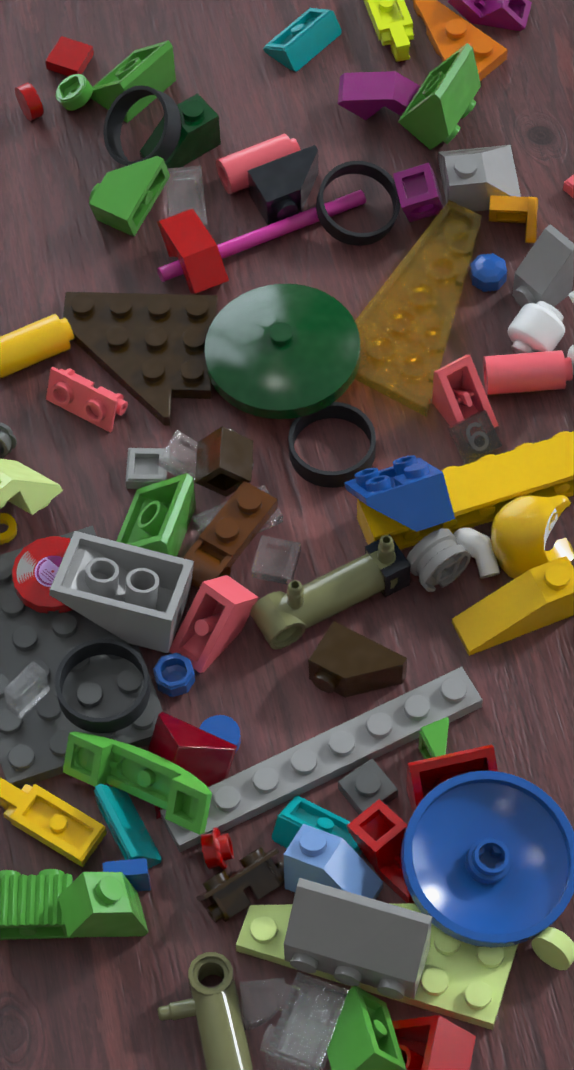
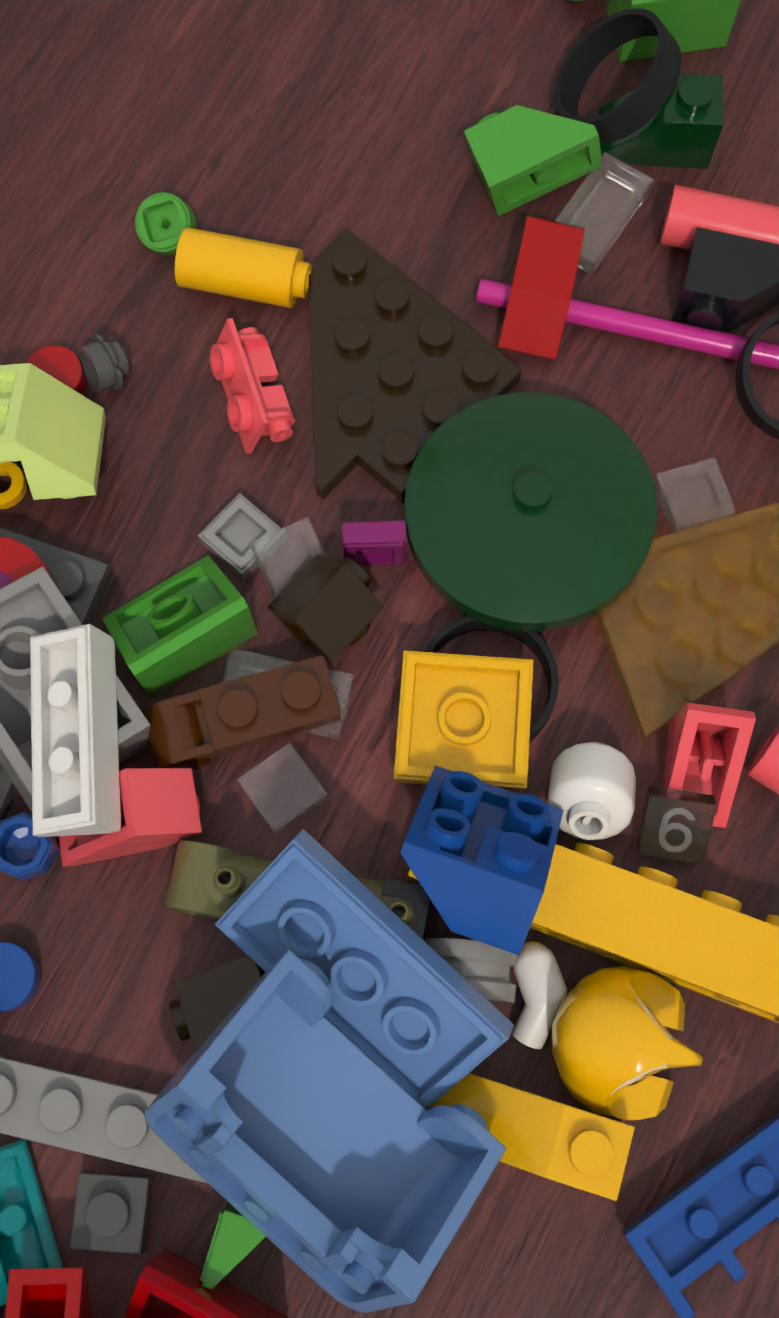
camera: 40 degrees right, 15 degrees up
(163, 582) = (74, 733): none -> white slope
(223, 413) = (375, 542): none -> magenta tile
(333, 456) = (464, 718): none -> yellow tile
(354, 293) = (693, 495): none -> clear tile
(392, 584) = (383, 979): none -> medium blue tile
(425, 441) = (593, 789): none -> white head
(436, 665) = (324, 1143): none -> medium blue windscreen

